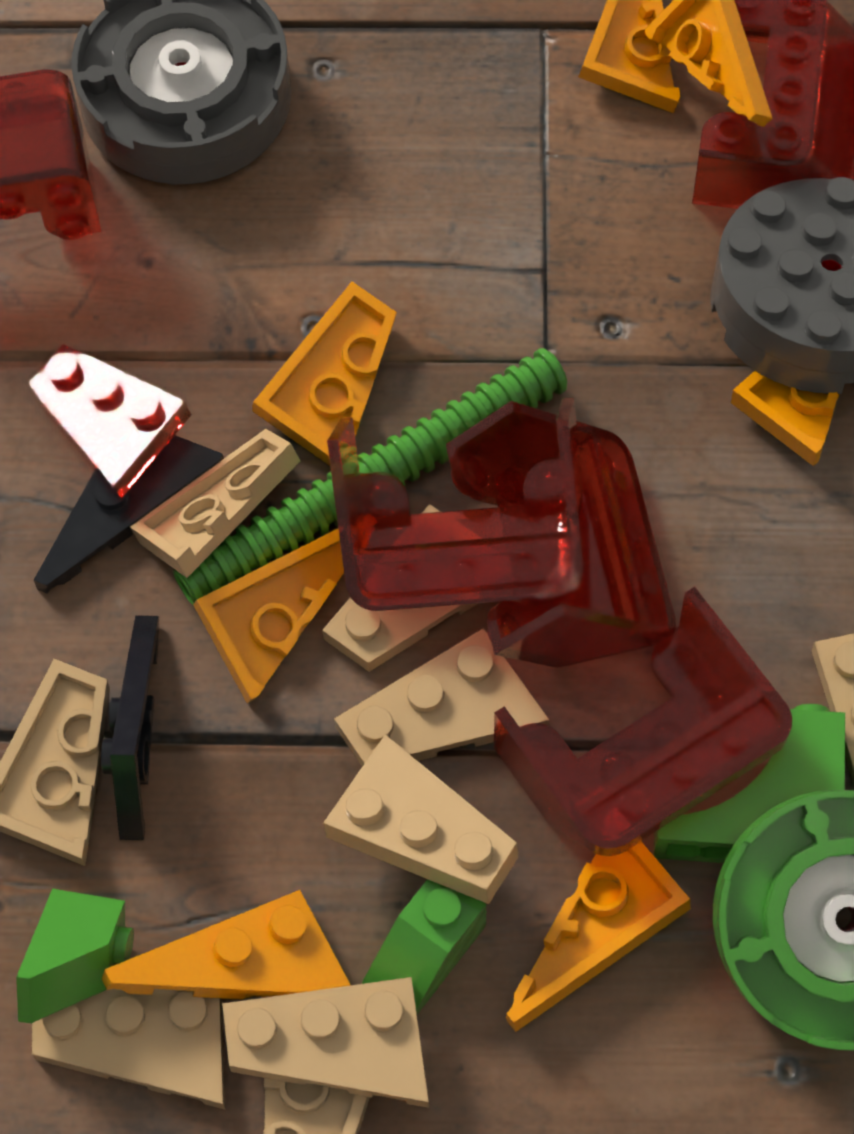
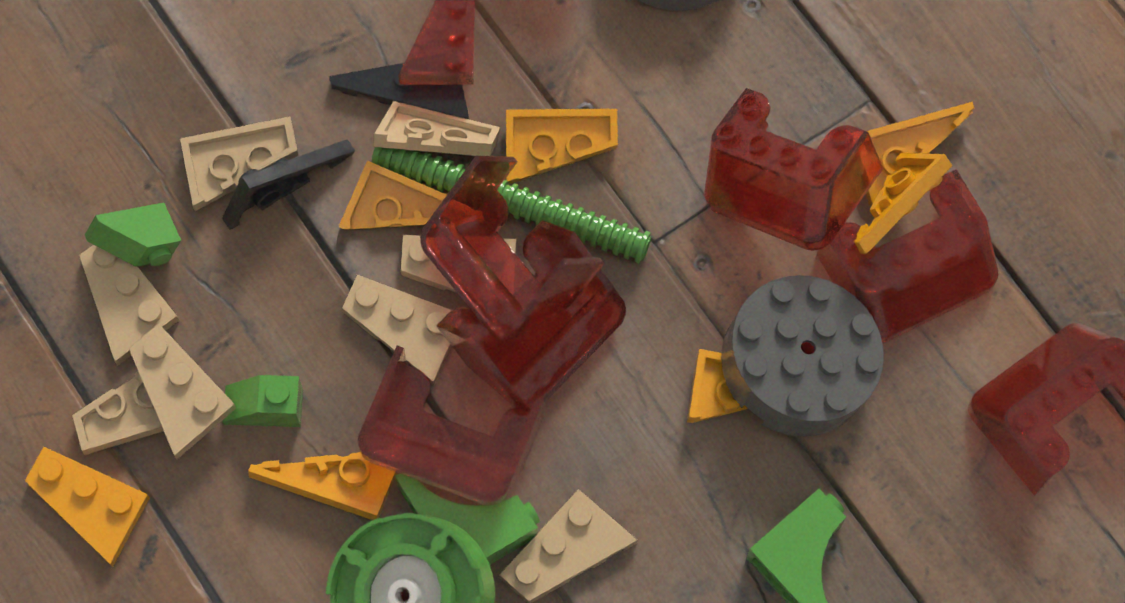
camera: 50 degrees right, 5 degrees up
(253, 954) = (203, 325): light orange wing -> none
(420, 825) = (316, 352): tan wing -> none
(597, 159) = (782, 184): none -> clear red windscreen

